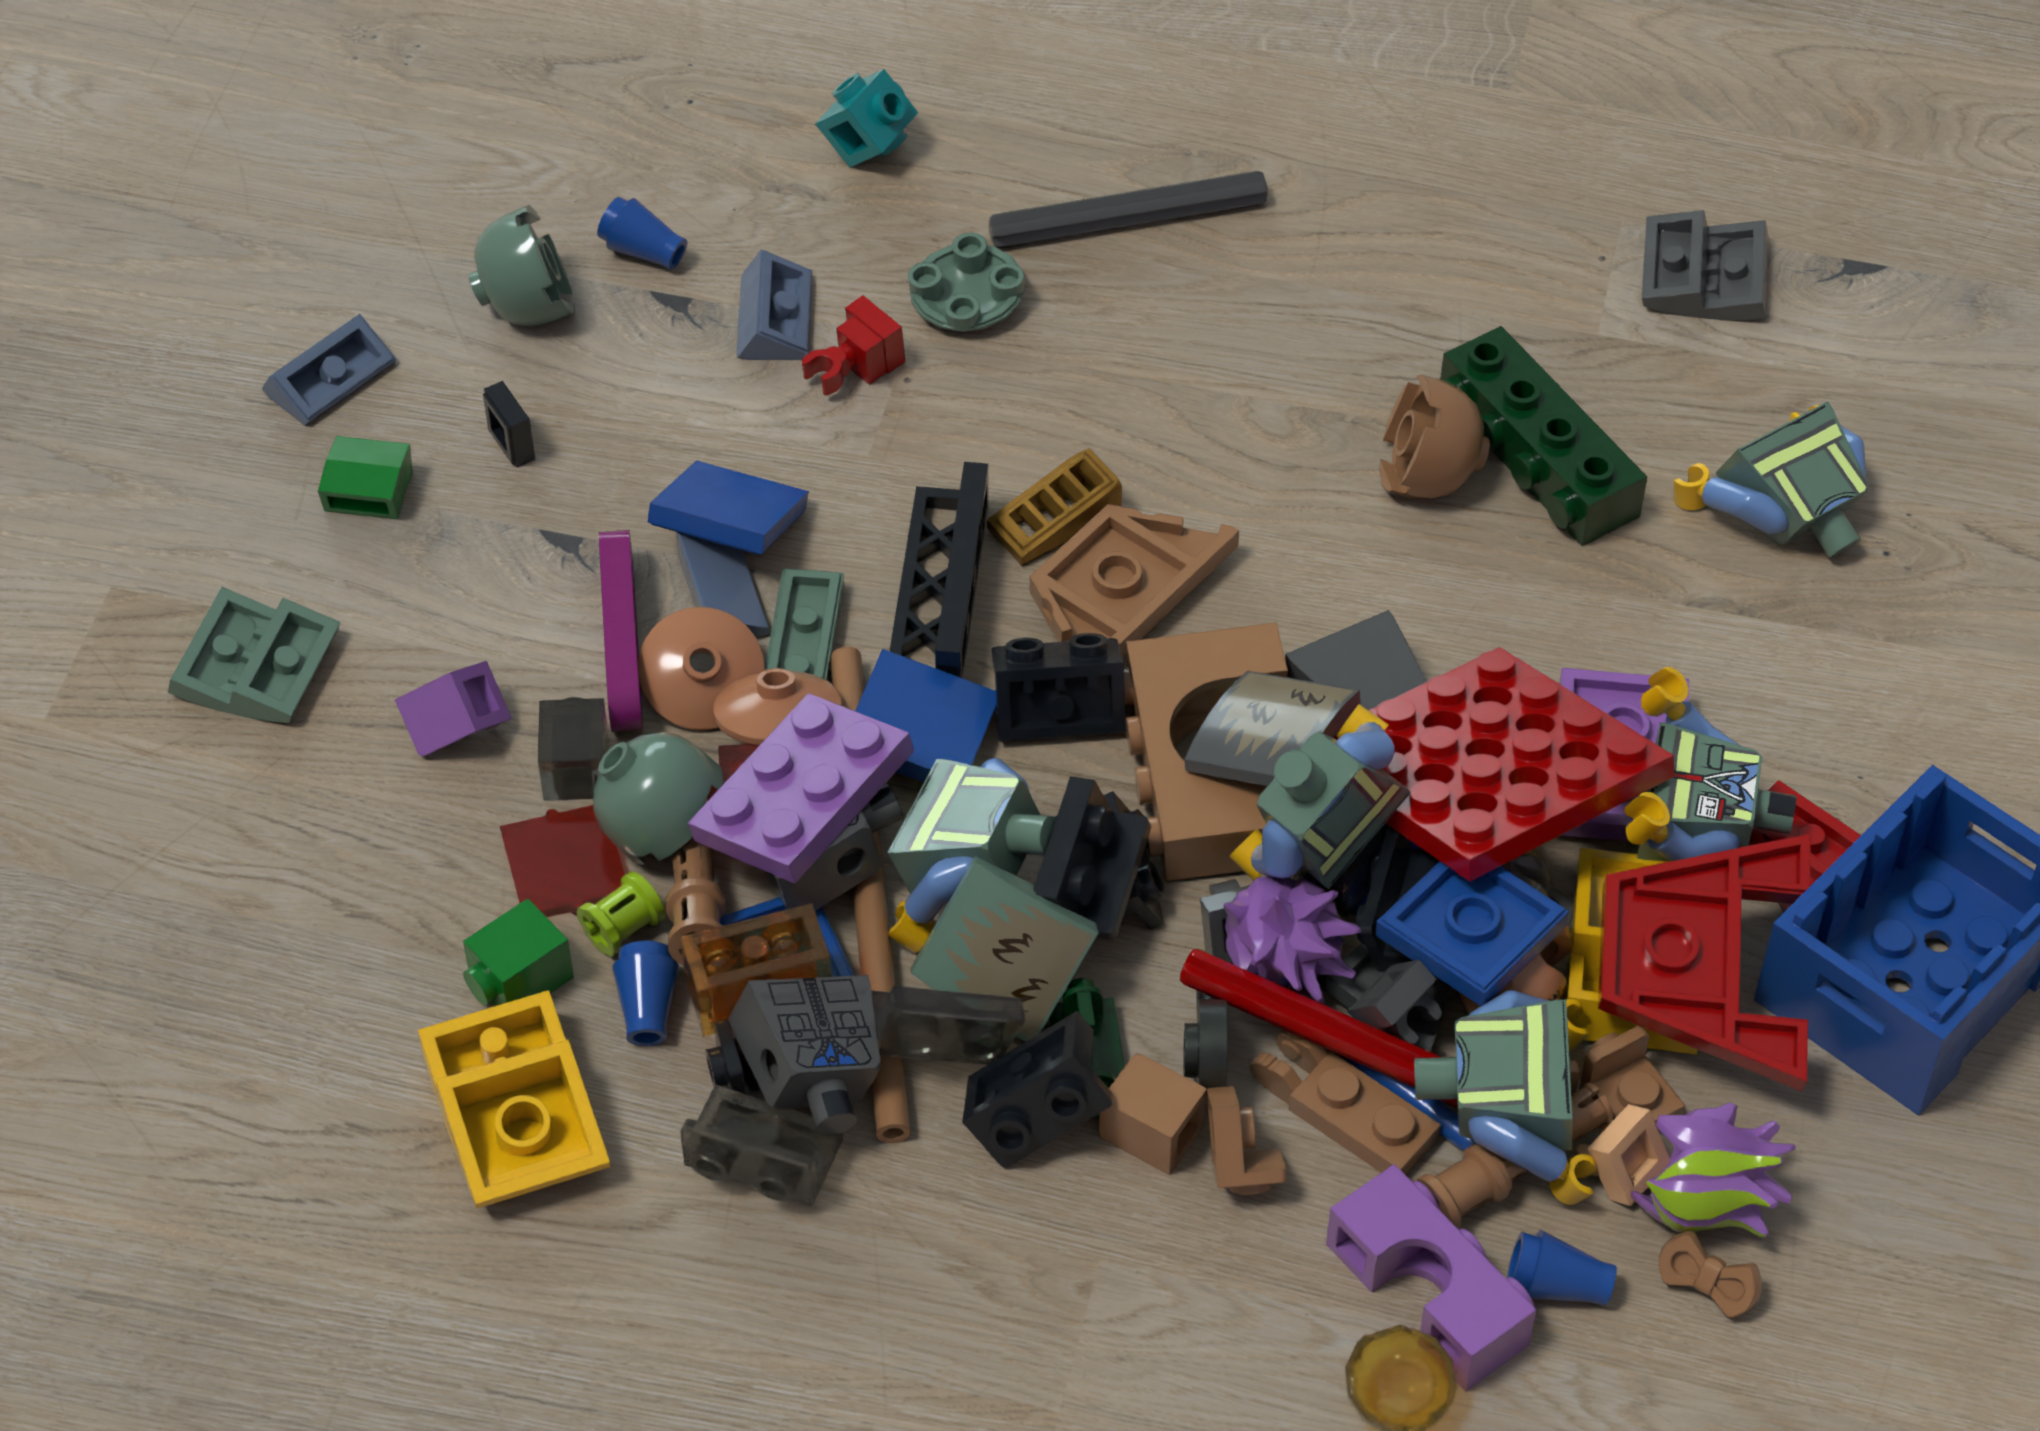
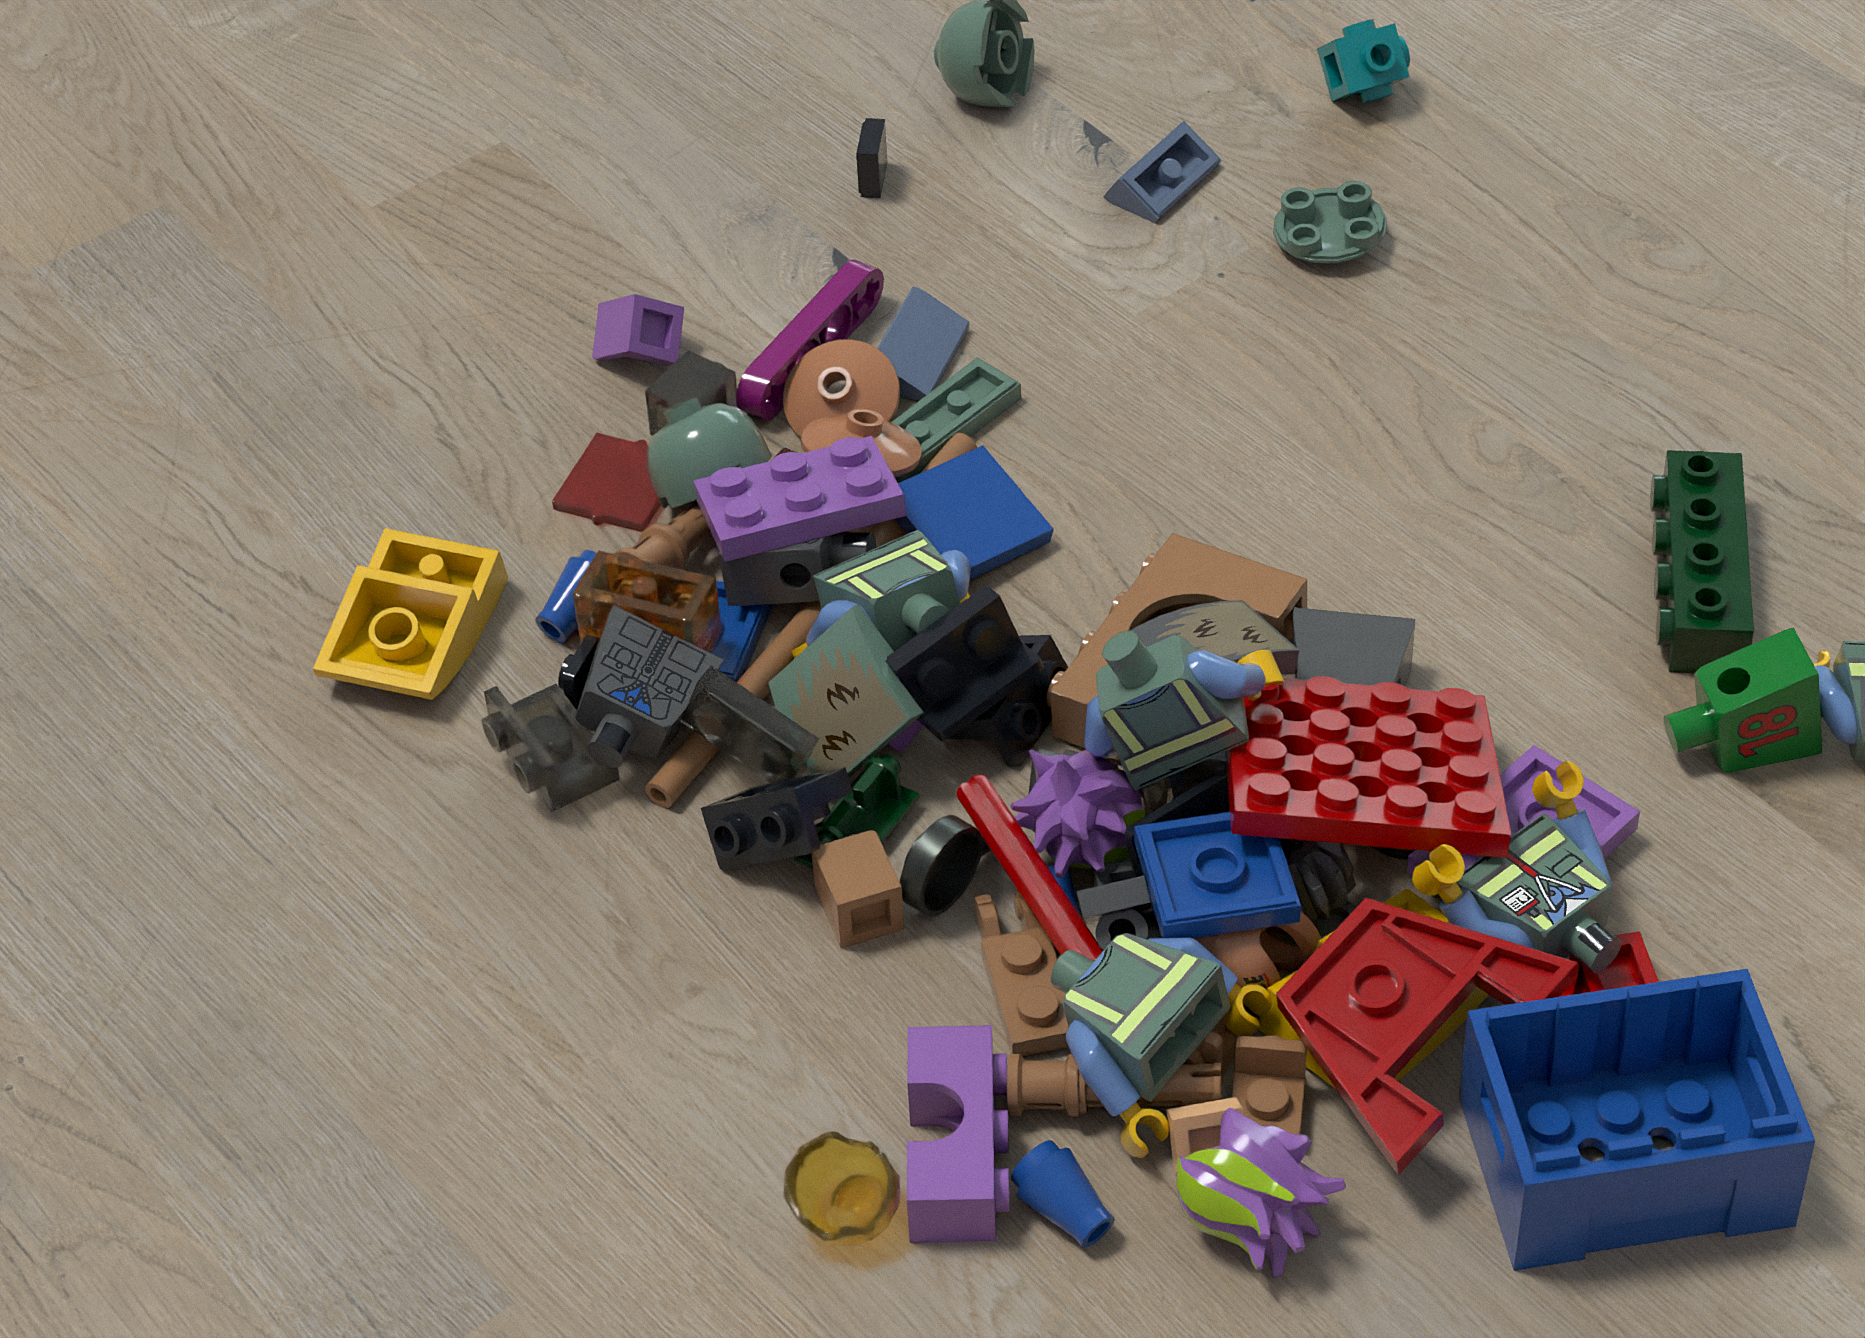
camera: 40 degrees right, 5 degrees down
(253, 657) = (541, 231): sand green slope -> none
(329, 371) = (788, 64): sand blue slope -> none
(365, 477) = (737, 147): green piece -> none
(516, 956) = (509, 519): green brick -> none
(621, 913) = (611, 530): lime bush -> none
(638, 233) = (1105, 67): blue cone -> none
(727, 507) = (973, 291): blue tile -> none
(867, 345) = (1202, 227): red piece -> none
(955, 586) = (1101, 424): black fence -> none
(1059, 687) = (1092, 541): black bracket -> none
(1080, 479) = (1257, 417): pearl gold slope -> none
(1125, 573) = (1237, 496): medium nougat wing -> none
(1127, 209) = (1527, 229): dark grey axle -> none
(1230, 1134) = (886, 939): medium nougat bracket -> none
(1434, 440) = (1597, 517): medium nougat cylinder -> none
(1687, 1264) = (1177, 1255): medium nougat piece -> none
(1699, 539) = (1753, 706): none -> green torso

